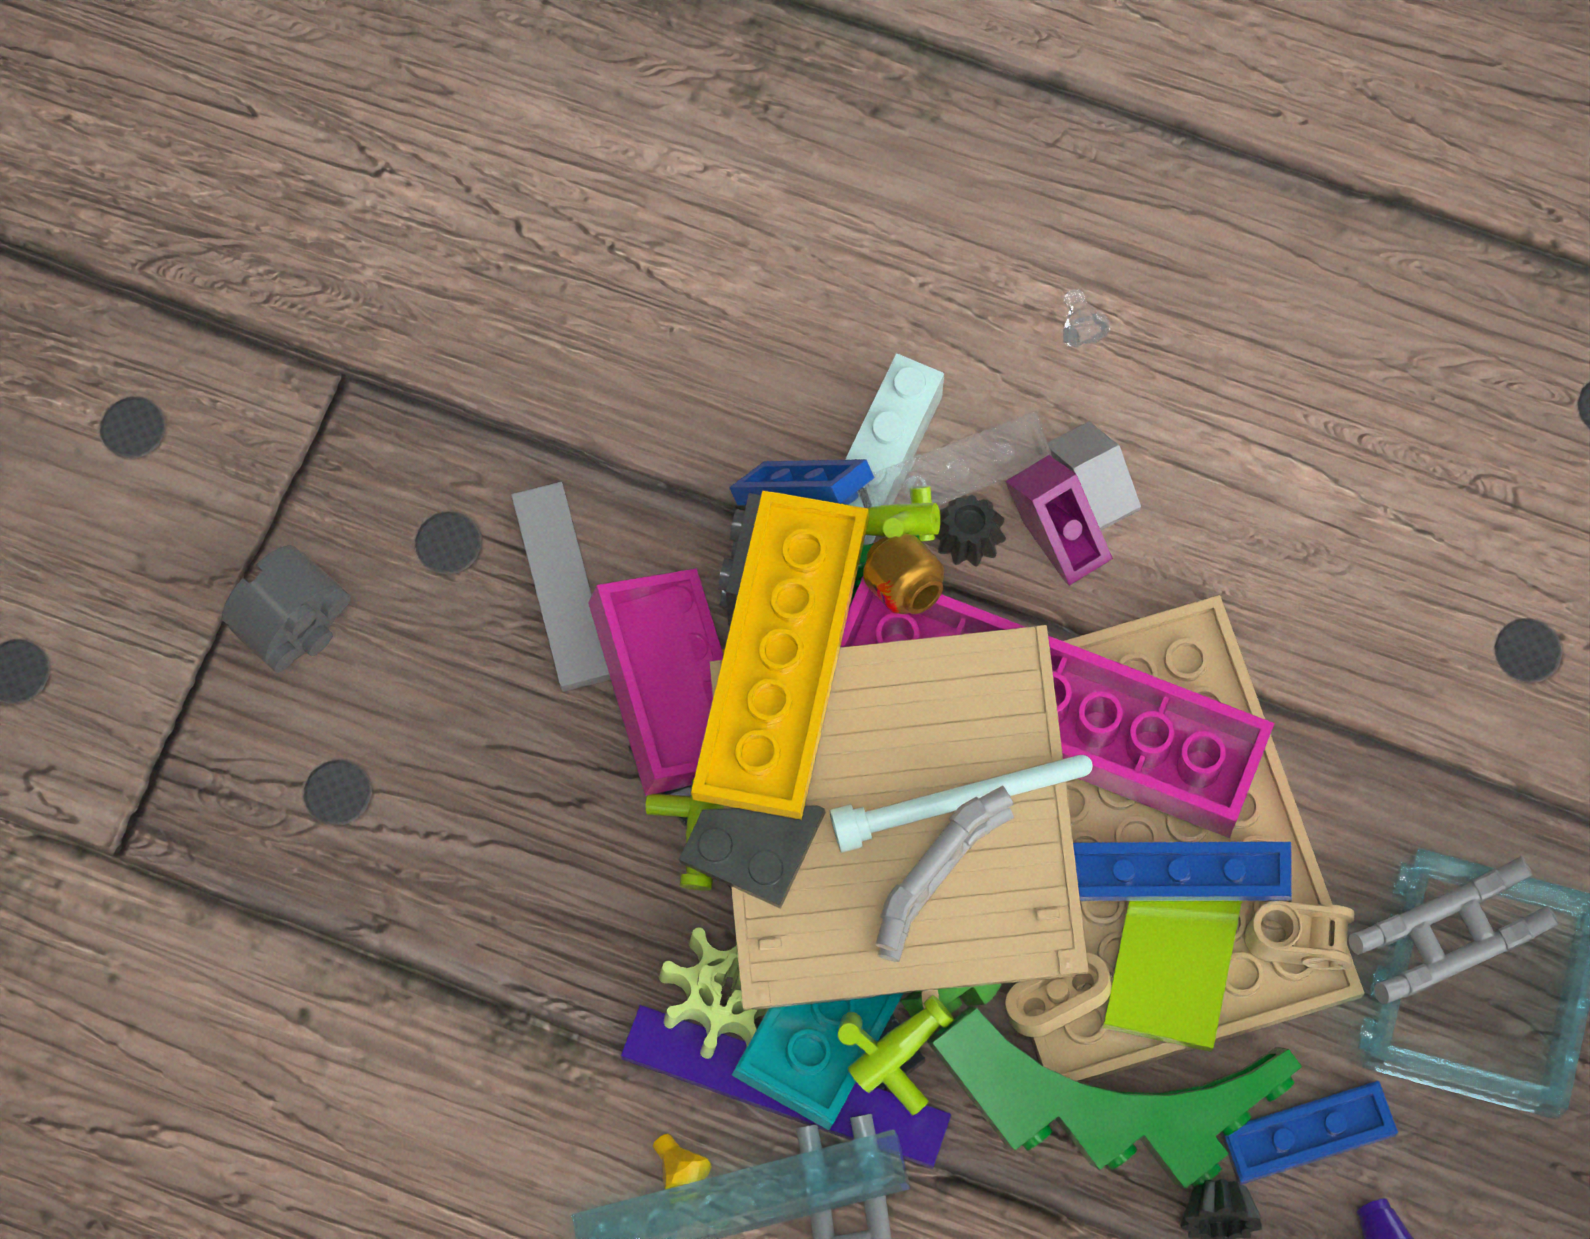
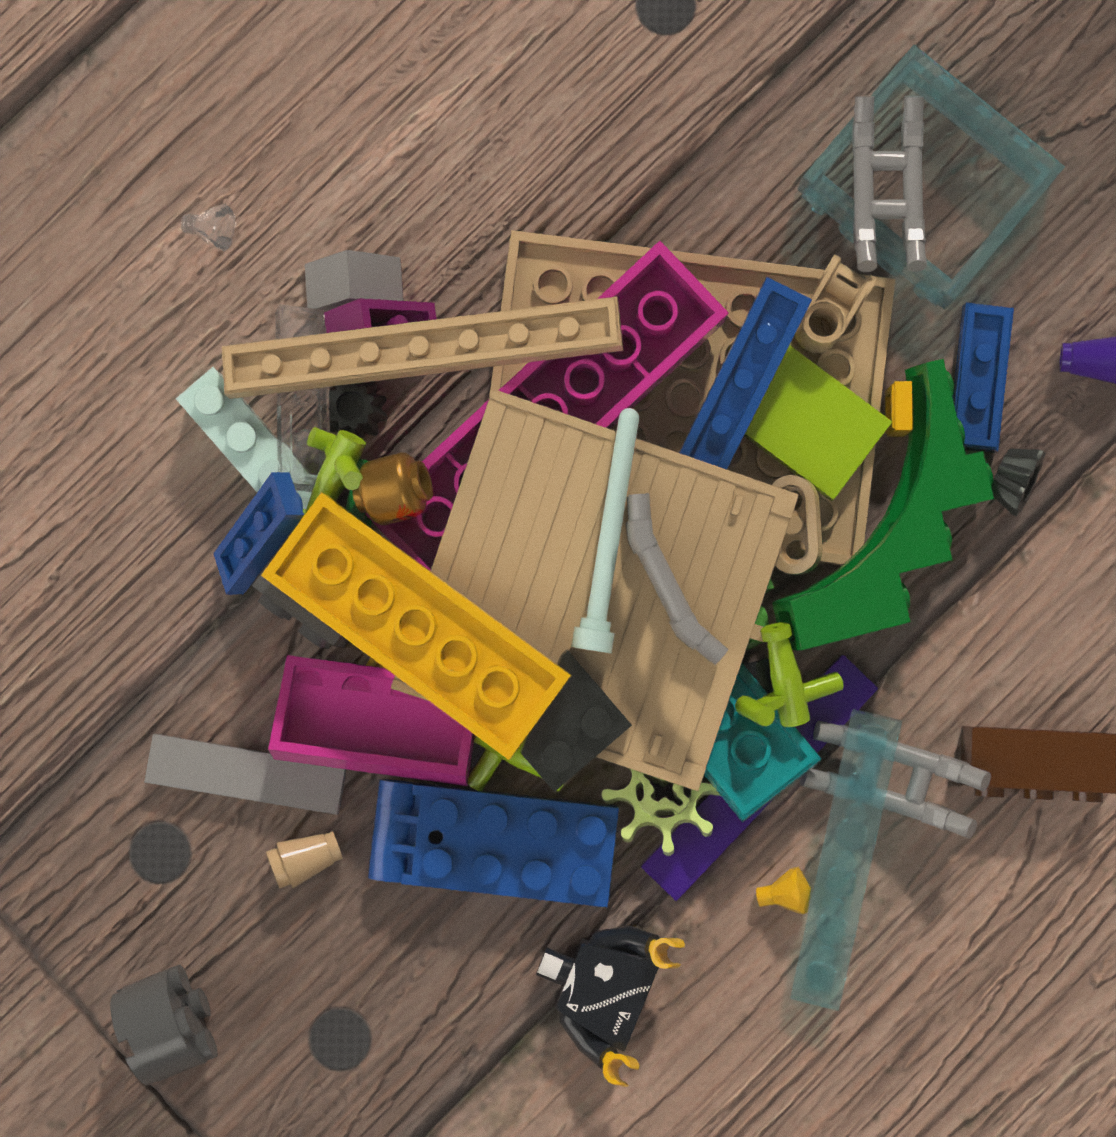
camera: 65 degrees left, 15 degrees up
(500, 1022) = (606, 990): none -> black torso
(502, 673) = (303, 858): none -> tan cone
(601, 851) = (493, 843): none -> blue hinge
(1057, 551) = (422, 348): none -> tan tile
(1232, 1056) = (899, 408): none -> yellow tile

